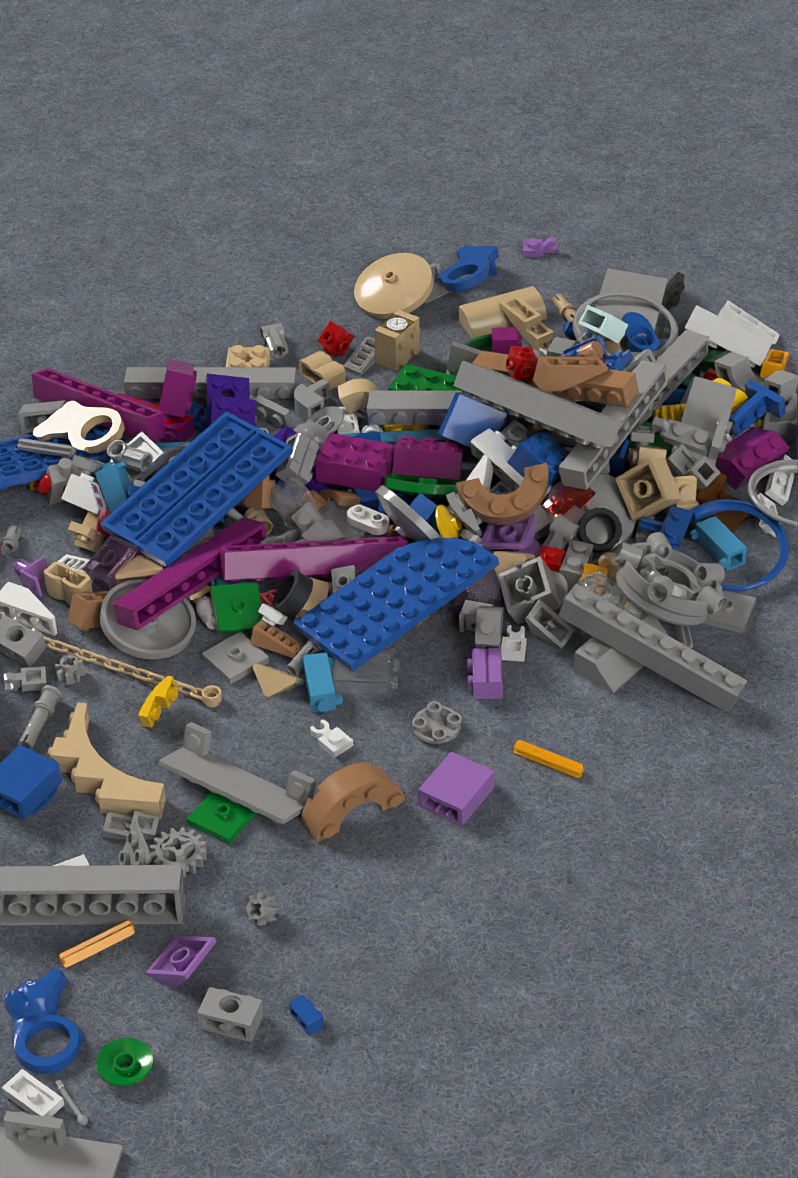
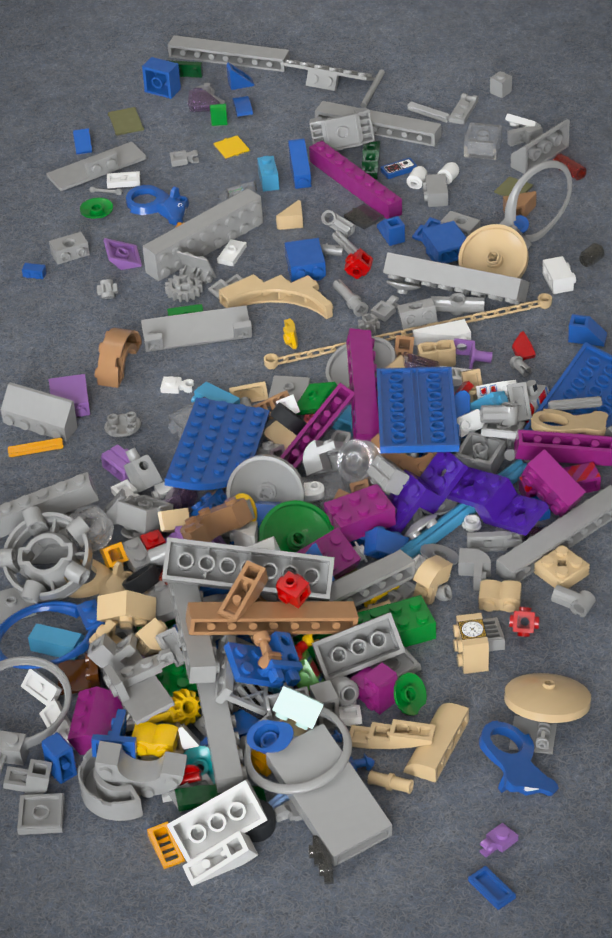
camera: 140 degrees right, 0 degrees up
(514, 779) = (39, 412): none -> light grey slope
(575, 230) = (492, 887): none -> blue tile

